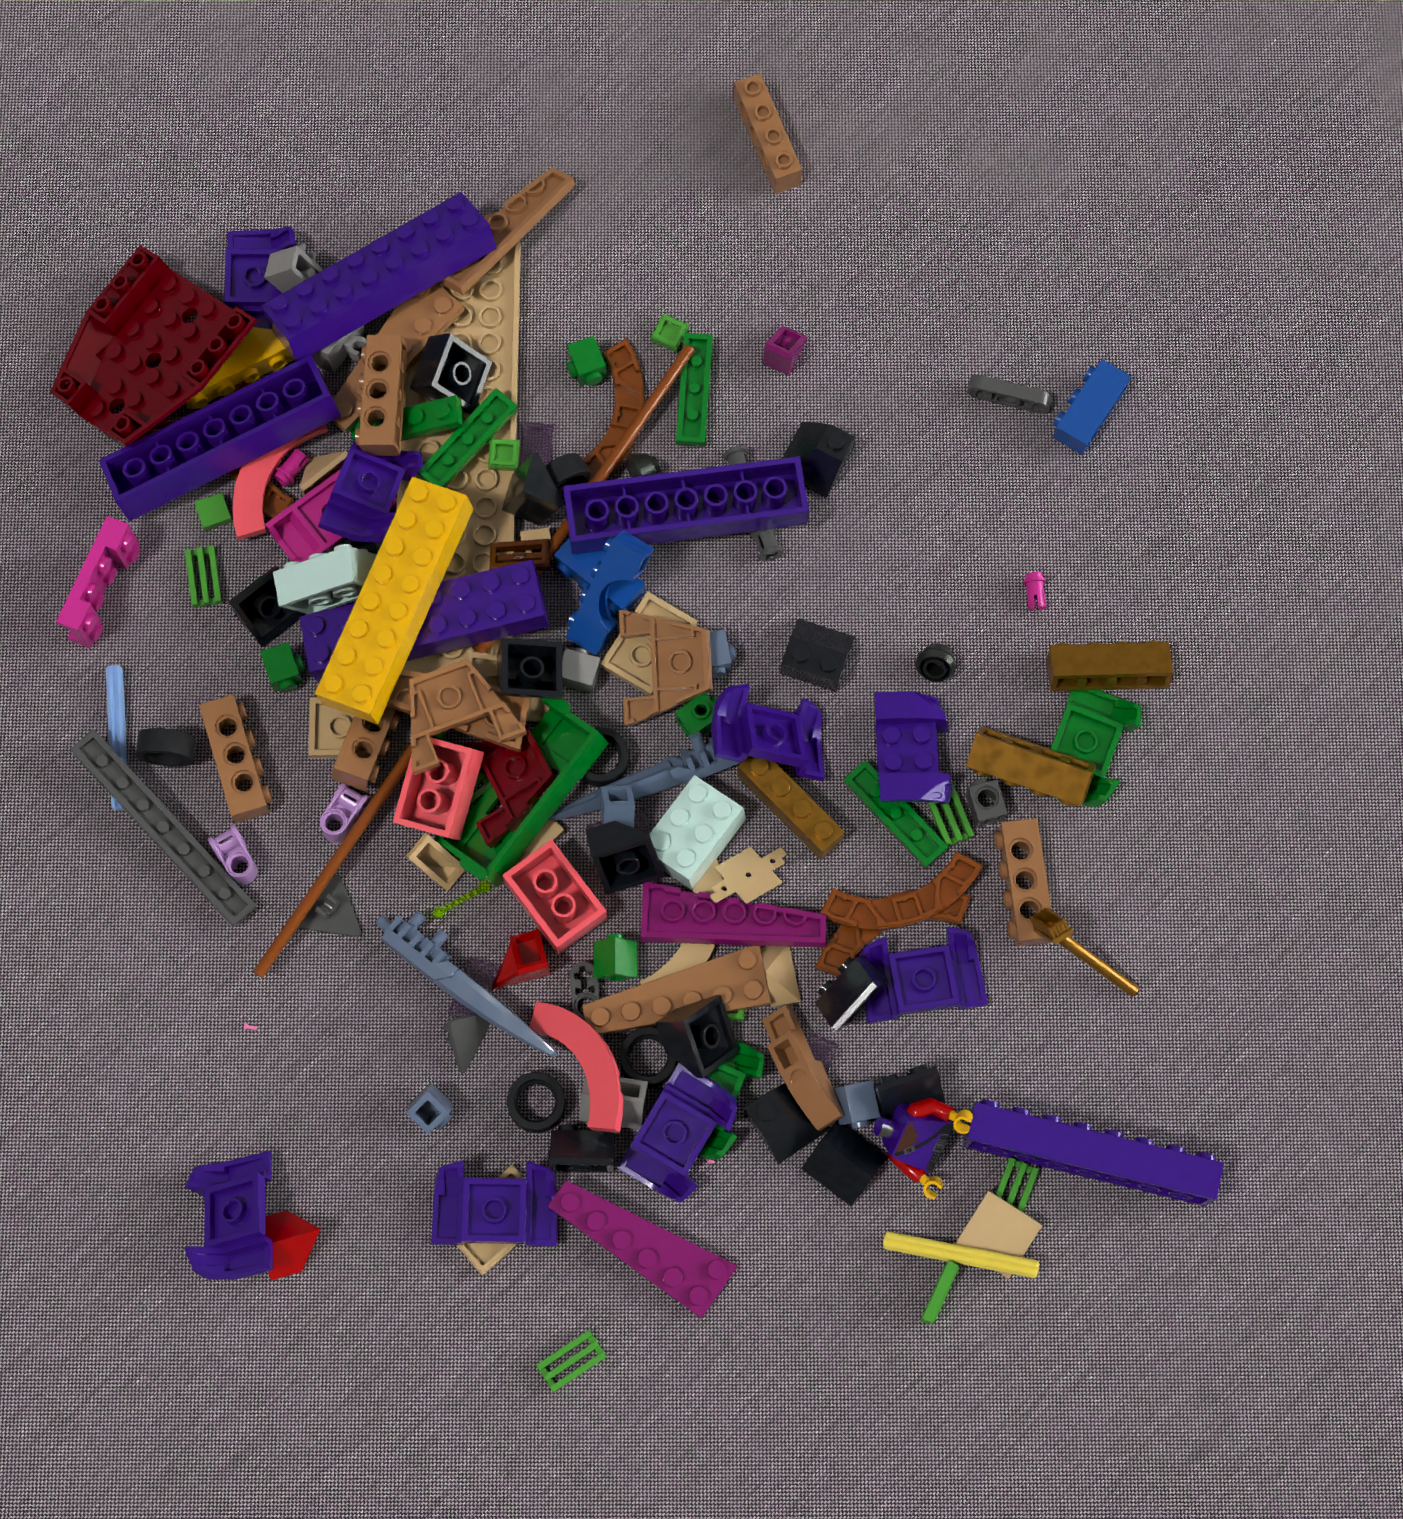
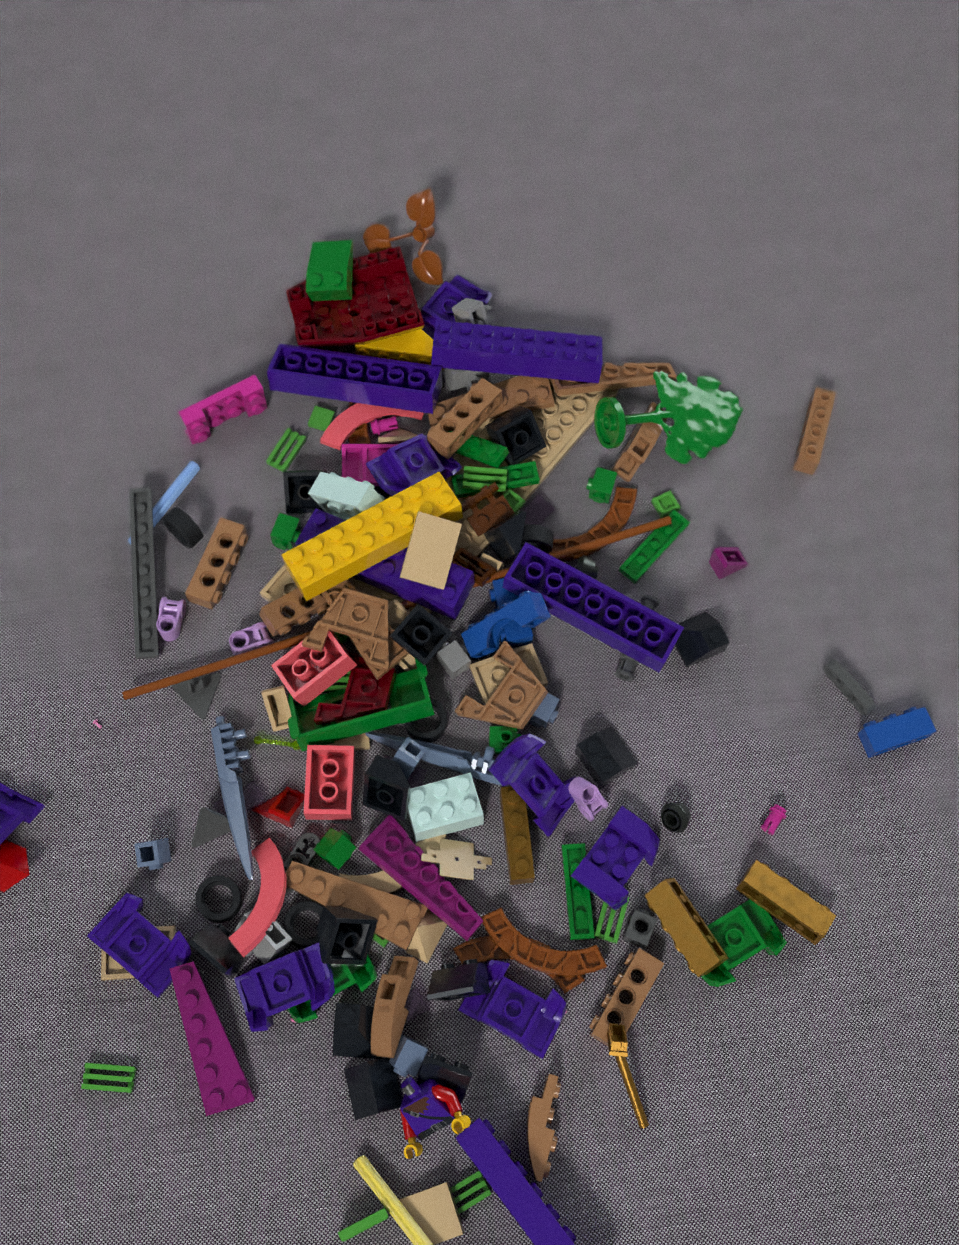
camera: 35 degrees right, 5 degrees down
(86, 330) = (330, 271): none -> green slope
(140, 184) = (421, 209): none -> dark orange plant
(453, 438) = (480, 475): none -> bright green tile
(474, 570) = (430, 550): none -> tan tile
(495, 482) = (490, 514): none -> reddish brown plate
(593, 281) = (638, 447): none -> medium nougat slope
(629, 199) = (700, 415): none -> green plant
(832, 711) = (587, 797): none -> lavender piece
(1044, 1081) = (539, 1138): none -> medium nougat slope

